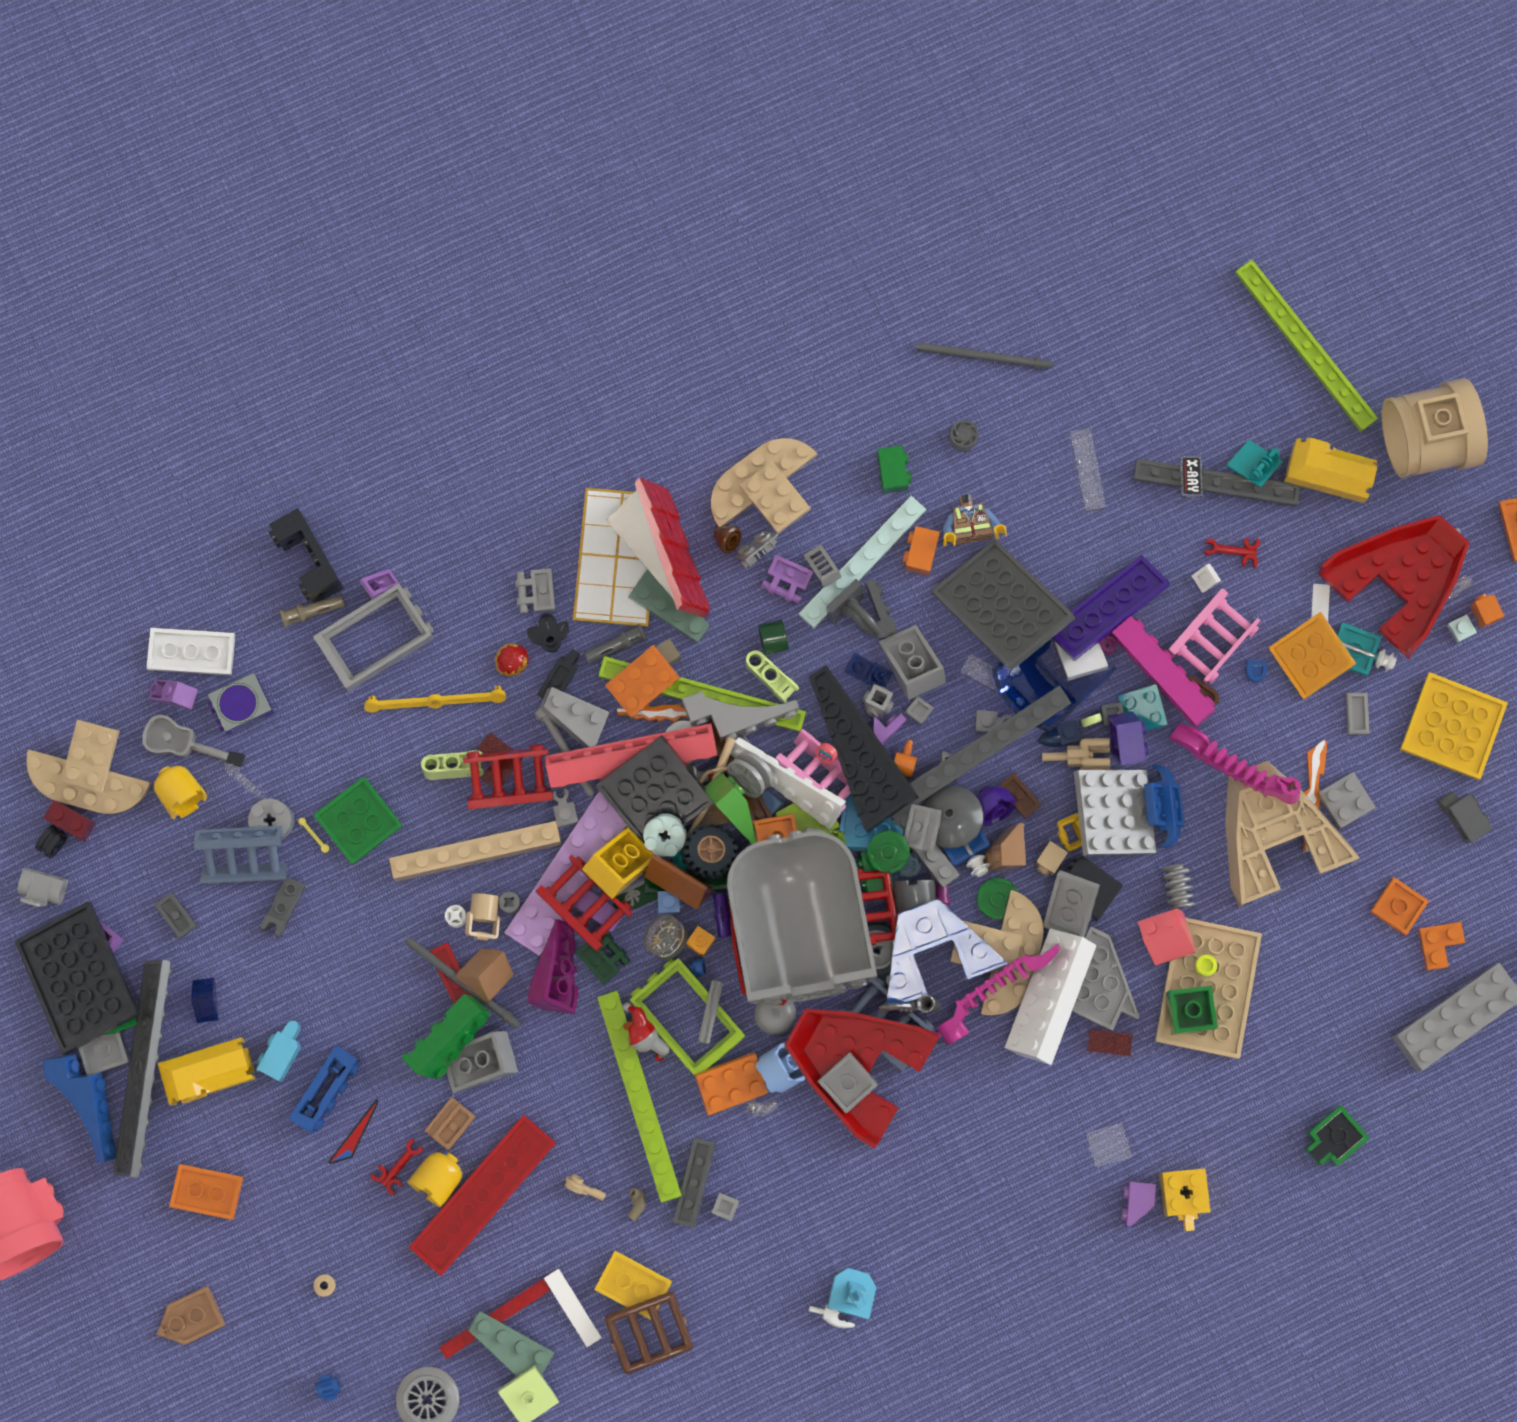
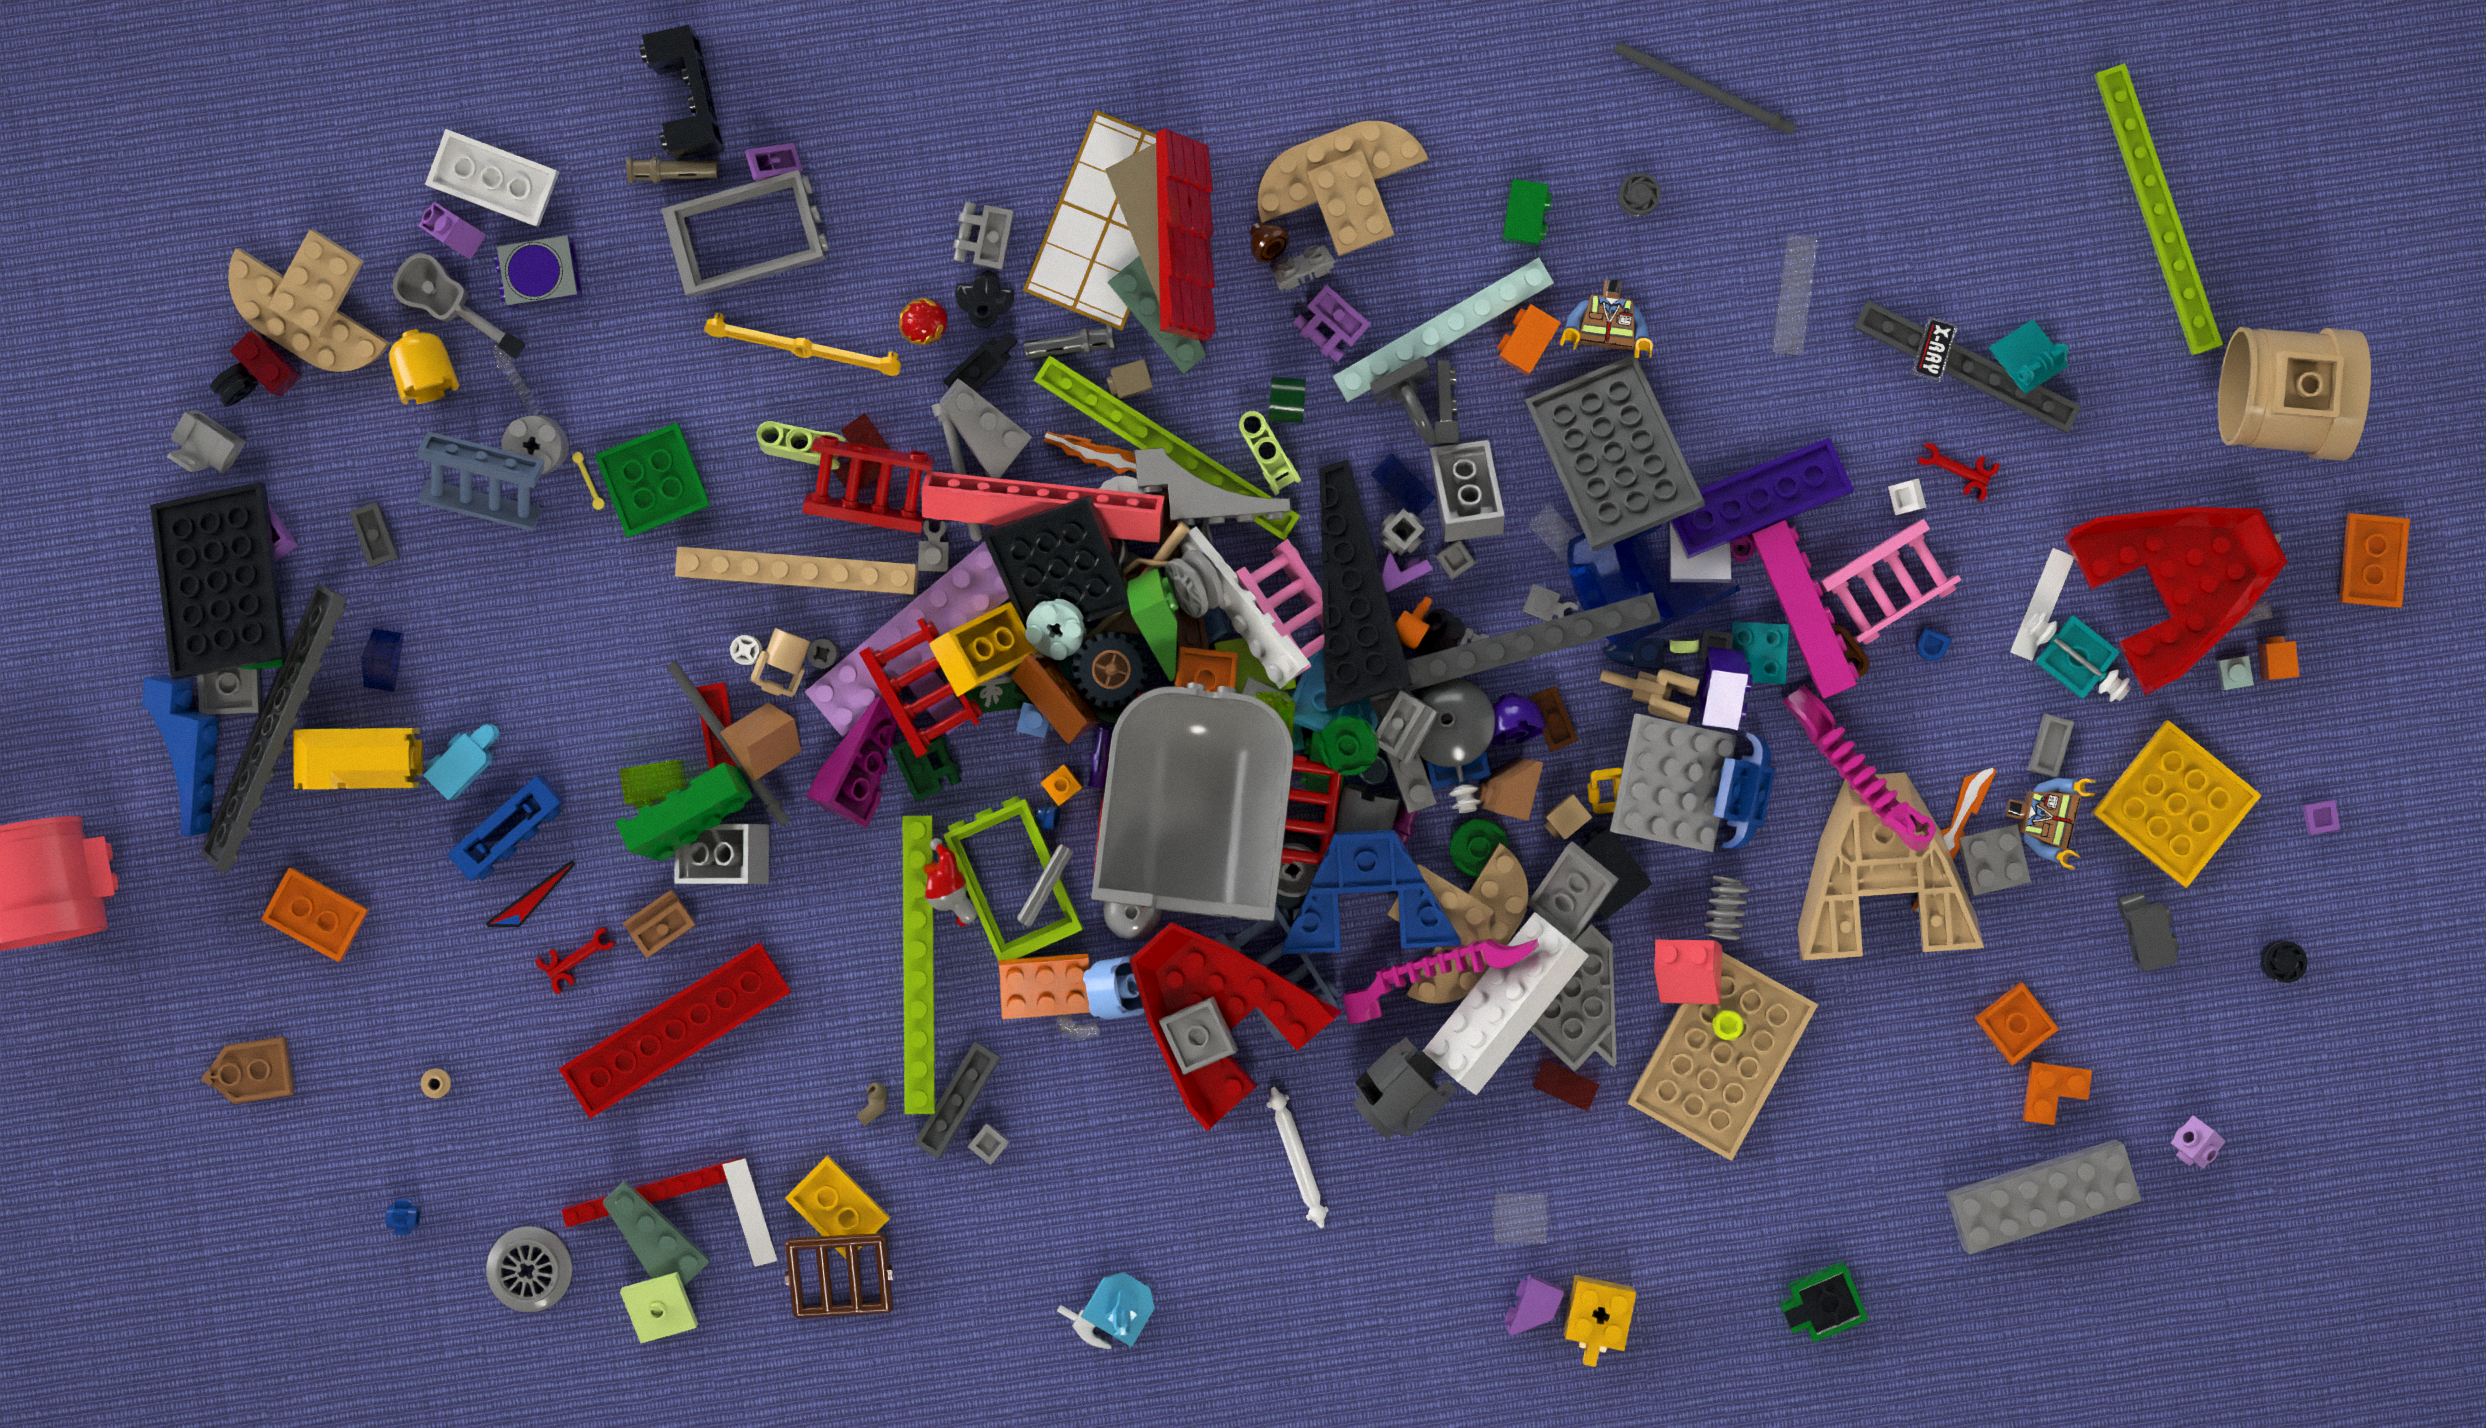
camera: 25 degrees right, 10 degrees up
(283, 906) = (520, 566): dark grey plate -> none
(416, 1025) = (652, 781): none -> clear neon green brick
(437, 1177) = (620, 990): yellow cylinder -> none
(576, 1184) = (802, 1055): tan plate -> none
(642, 681) = (1090, 407): orange plate -> none
(665, 937) = (1016, 765): clear piece -> none
(826, 753) = (1308, 584): coral tile -> none
(830, 576) = (1390, 339): light grey slope -> none
(924, 1004) = (1333, 963): flat silver piece -> none
(926, 759) = (1442, 633): none -> black plate
(942, 1150) = (1297, 1157): none -> white wheel
(997, 1078) = (1399, 1091): none -> dark grey piece
(1191, 1010) = (1687, 1081): green brick -> none
(1312, 655) = (2015, 650): light orange plate -> none
(1330, 471) = (2130, 400): yellow brick -> none
(1373, 759) = (2050, 817): none -> torso

